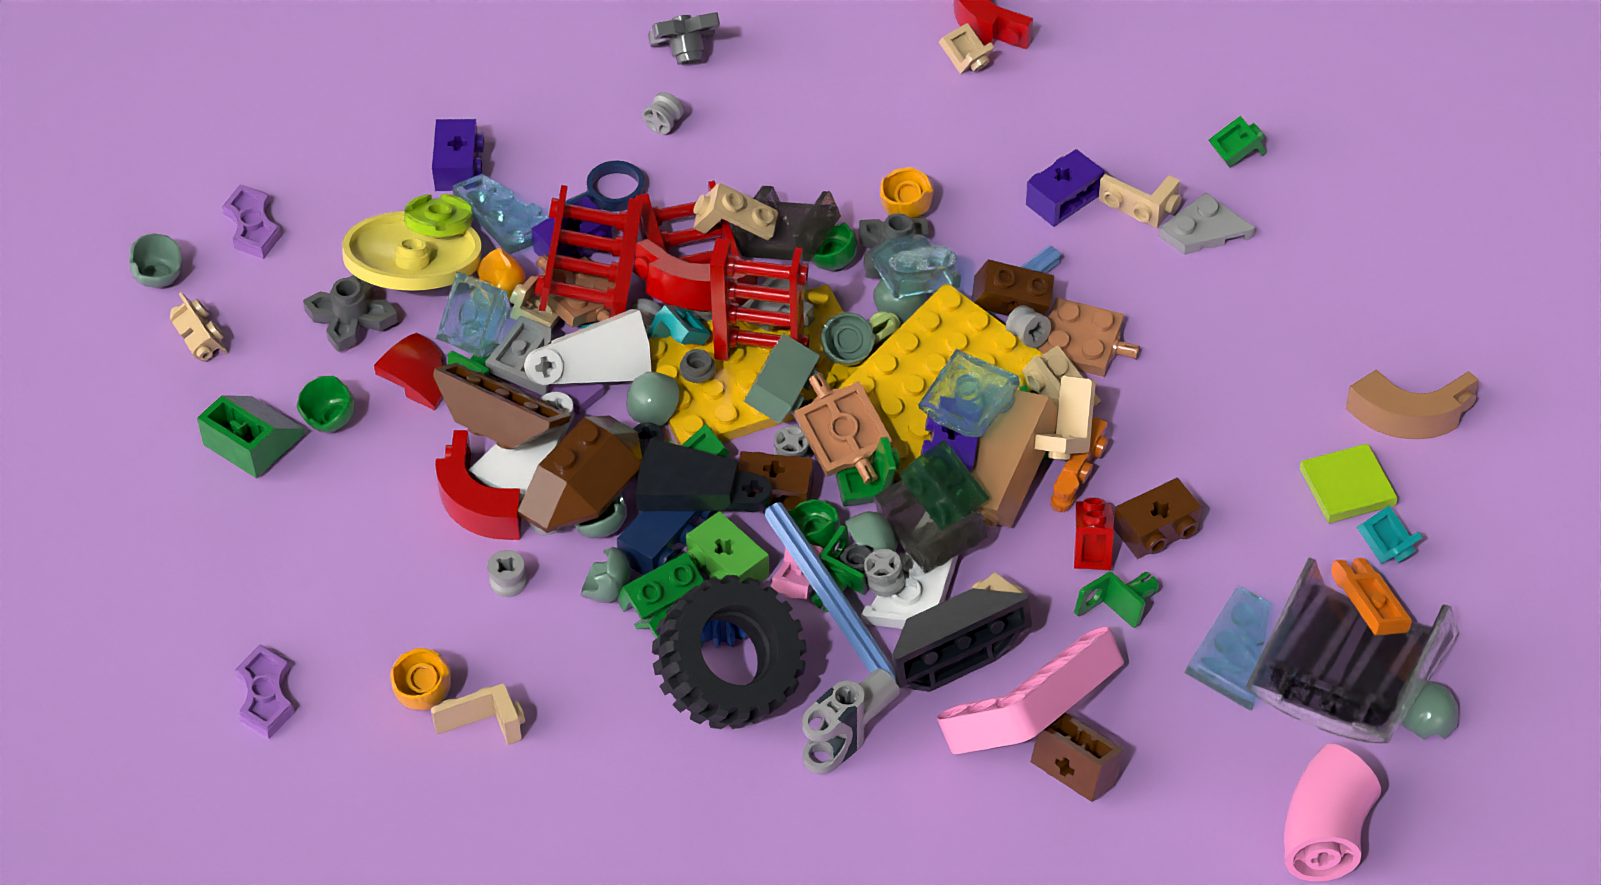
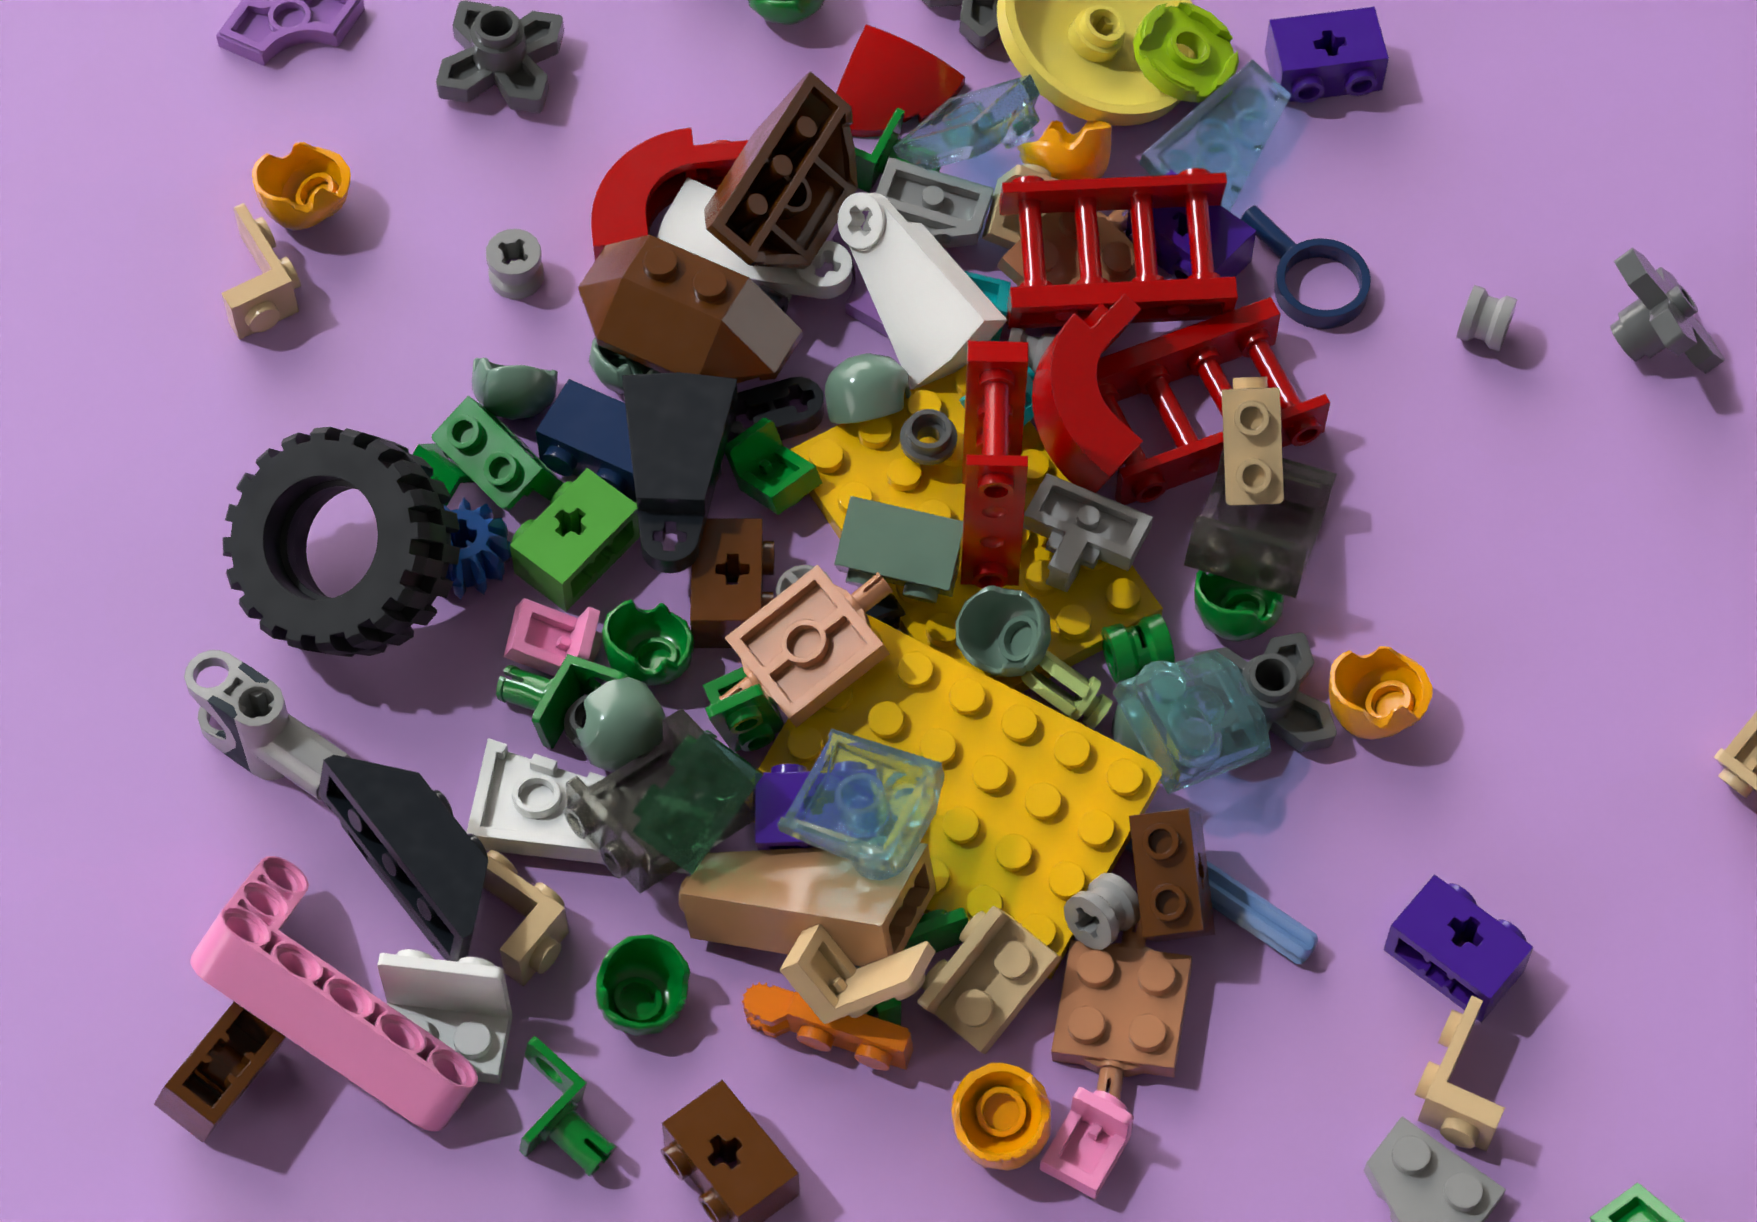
camera: 80 degrees right, 10 degrees up
(334, 567) = (500, 52): none -> dark grey plant
(827, 589) = (515, 667): medium blue axle -> none
(854, 294) = (1134, 647): none -> green wheel
(888, 564) = (550, 737): light grey wheel -> none
(1044, 548) = (642, 985): none -> green hair
(1048, 635) = (455, 1002): none -> white bracket
(1093, 534) = (694, 1055): red bracket -> none
(1149, 388) = (1001, 1116): none -> light orange hair
(1162, 358) = (1089, 1141): none -> bright pink bracket

